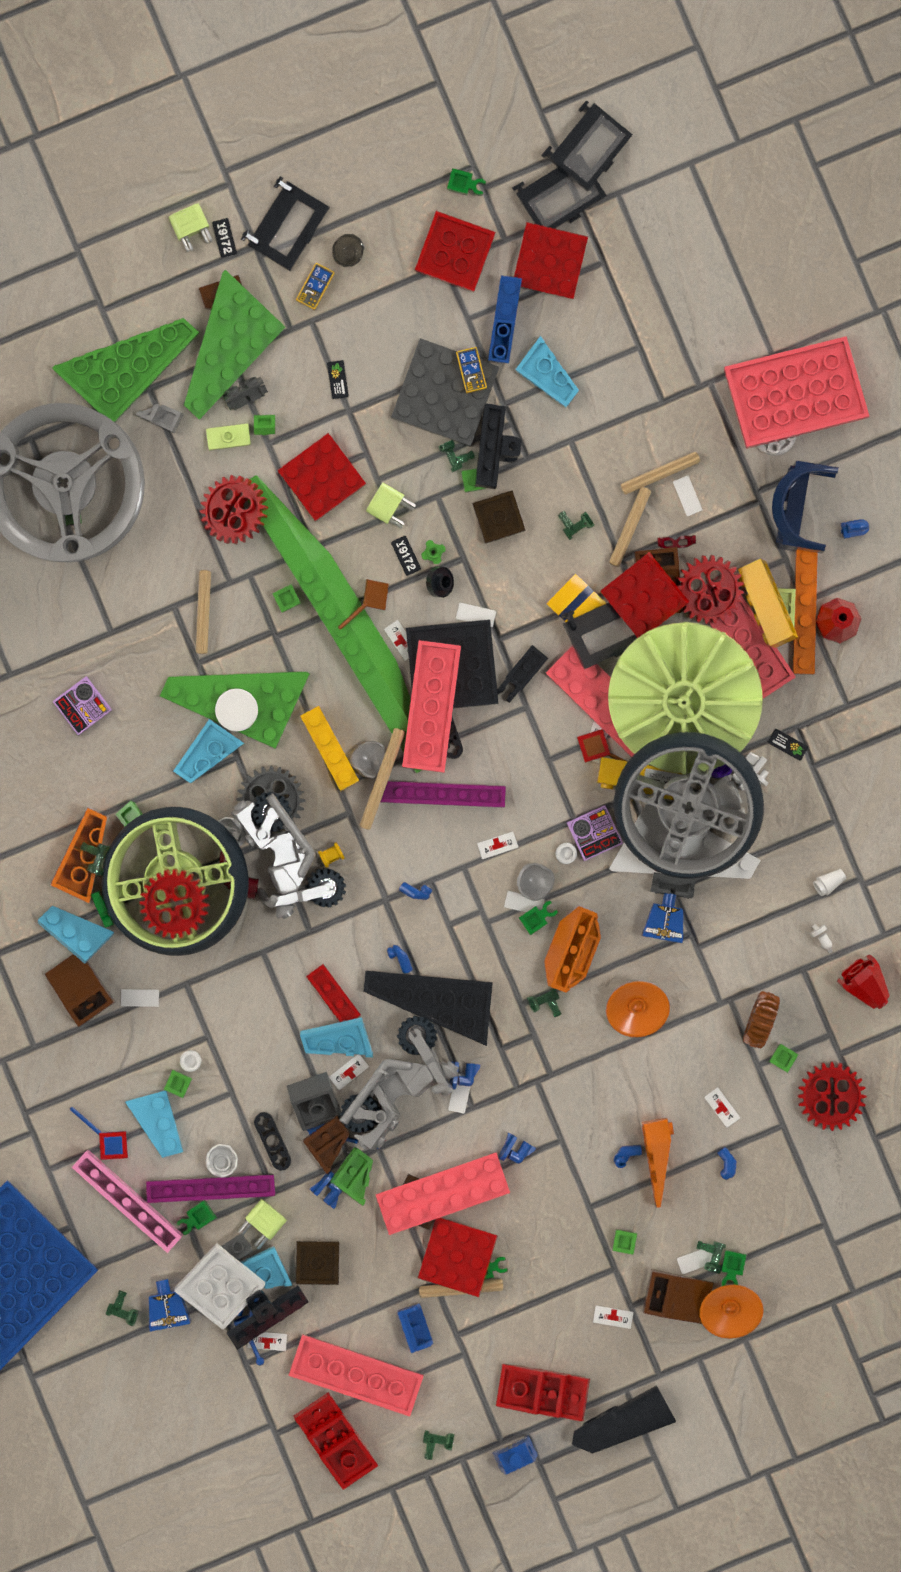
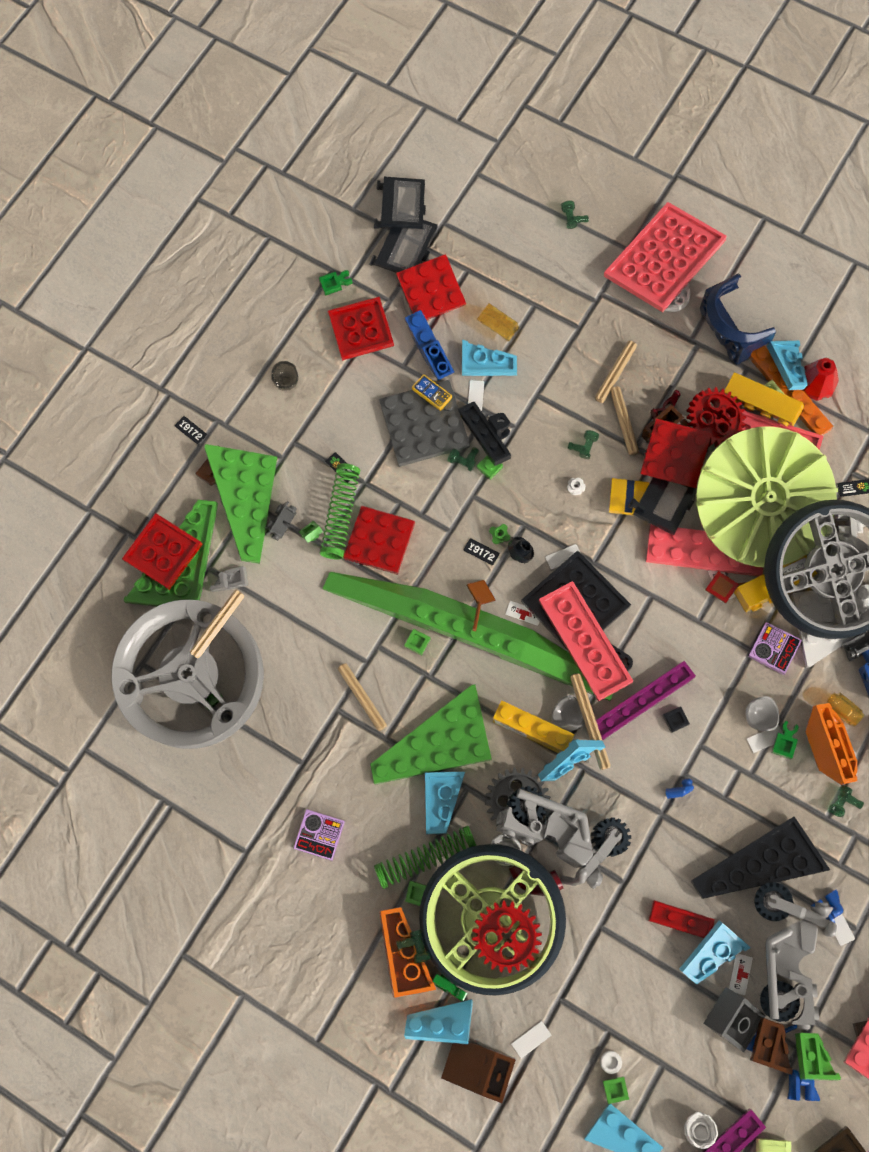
camera: 30 degrees left, 15 degrees down
(110, 782) = (382, 873): none -> bright green piece
(116, 347) = (162, 551): none -> red plate
(117, 460) = (216, 624): none -> tan axle
(188, 223) = (158, 435): yellowish green piece -> none
(228, 437) = (290, 559): yellowish green plate -> none
(236, 710) = (441, 749): white tile -> none
(249, 518) = (347, 601): red gear -> none
(260, 1129) = (744, 1083): black beam -> none
(287, 225) = (230, 391): black piece -> none
(315, 286) = (279, 416): tile -> none
(331, 854) = (595, 808): yellow bush -> none
(335, 797) = (563, 763): none -> medium azure wing
(336, 389) = (338, 553): none -> bright green piece
(386, 503) = (439, 524): yellowish green piece -> none
(402, 957) = (710, 848): blue arm -> none
(459, 830) = (676, 719): none -> black tile
(497, 845) = (711, 710): white sticker -> none
(498, 517) = (527, 477): dark brown plate -> none
(515, 398) = (476, 392): none -> white sticker
(523, 671) = (630, 570): black hinge -> none
(536, 551) = (576, 490): none -> white plate
(566, 853) = (766, 678): white tile -> none
(587, 343) = (498, 322): none -> clear yellow hinge
(610, 928) = (846, 709): none -> clear yellow head
(687, 495) = (646, 374): white sticker -> none
(741, 285) = (568, 208): none -> clear green piece
(822, 582) = (788, 361): none -> medium azure wing
(854, 528) = (777, 314): blue piece -> none

